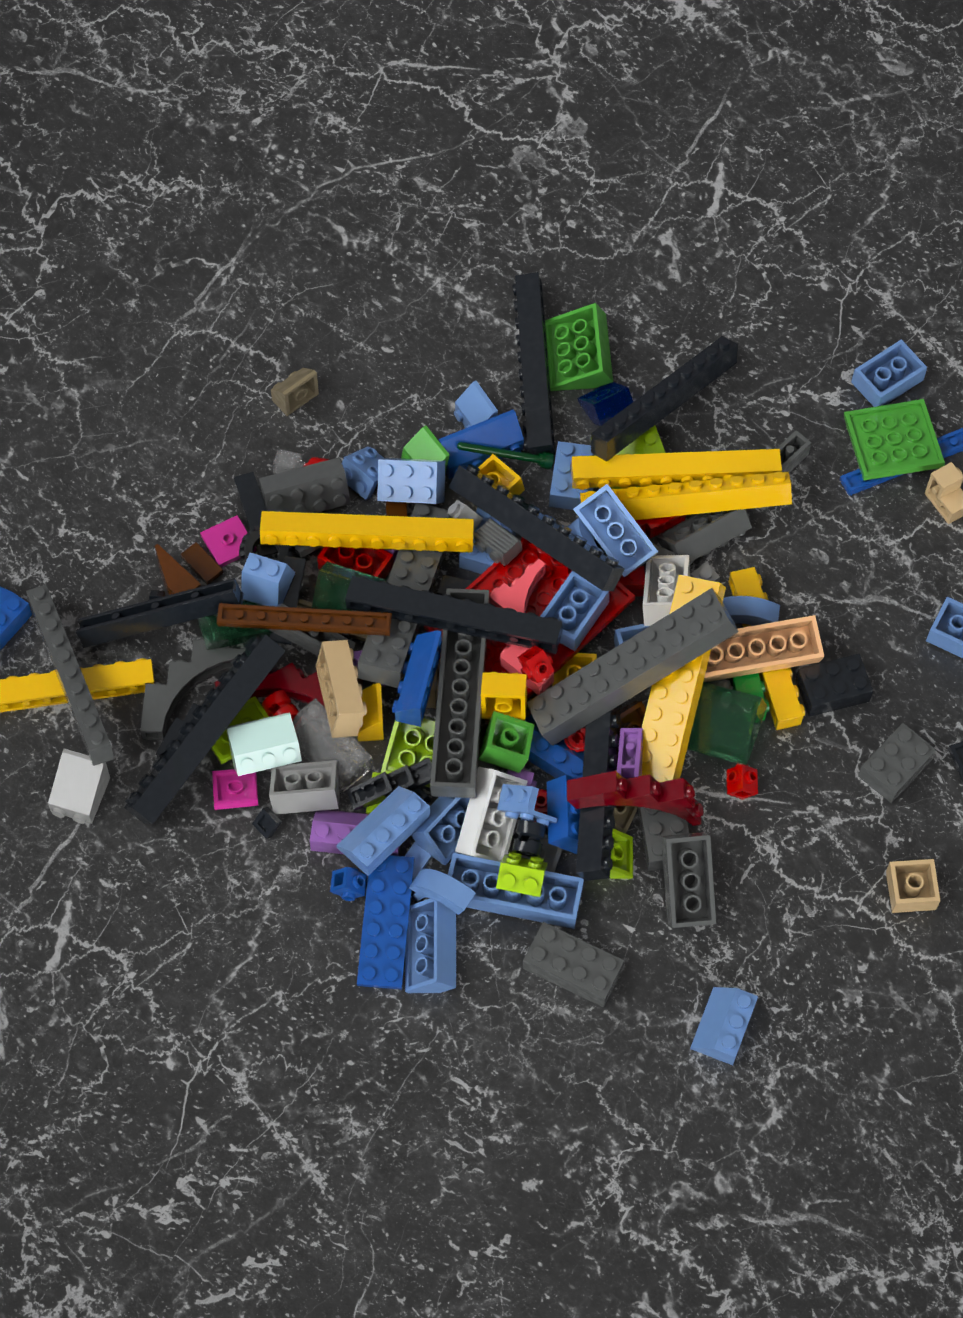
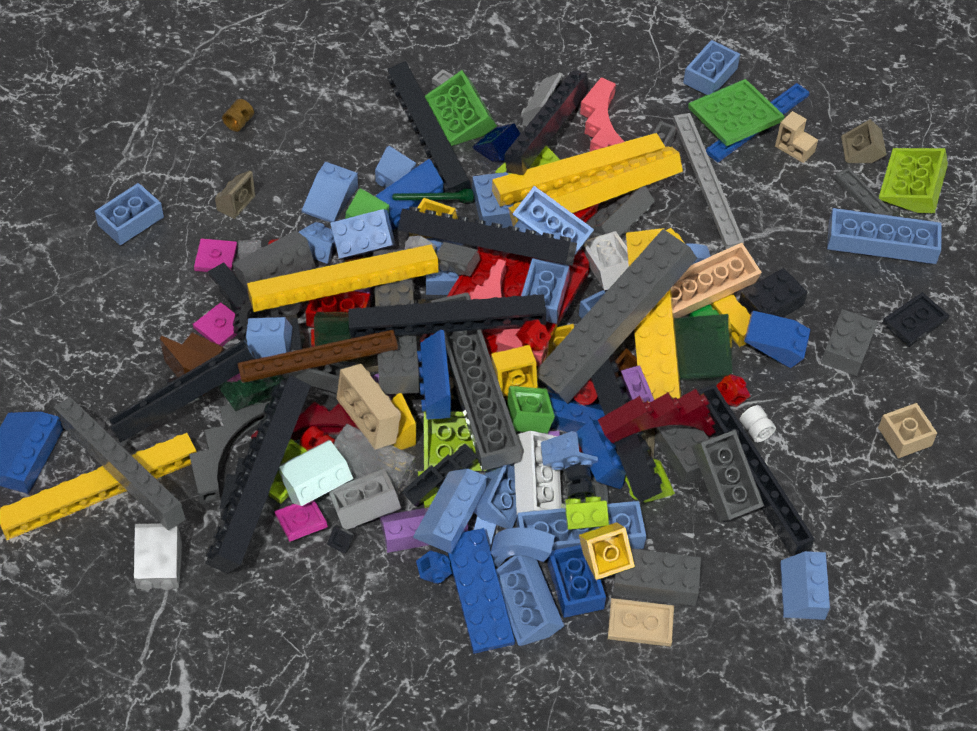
camera: 20 degrees left, 10 degrees down
(175, 382) = (129, 214): none -> medium blue brick
(251, 456) = (213, 253): none -> dark pink plate
(329, 291) = (238, 115): none -> pearl gold wheel
(398, 415) = (330, 192): none -> medium blue slope
(487, 943) = (574, 582): none -> blue brick
(525, 924) = (607, 550): none -> yellow slope
(539, 1007) = (641, 622): none -> tan tile
(575, 302) = (441, 77): none -> light grey plate
(669, 363) = (541, 96): none -> light grey slope
(726, 889) = (777, 505): none -> black brick
(734, 389) = (595, 108): none -> coral arch
(752, 828) = (759, 426): none -> white wheel
(816, 734) = (778, 337): none -> blue slope
(825, 517) = (708, 180): none -> light grey plate

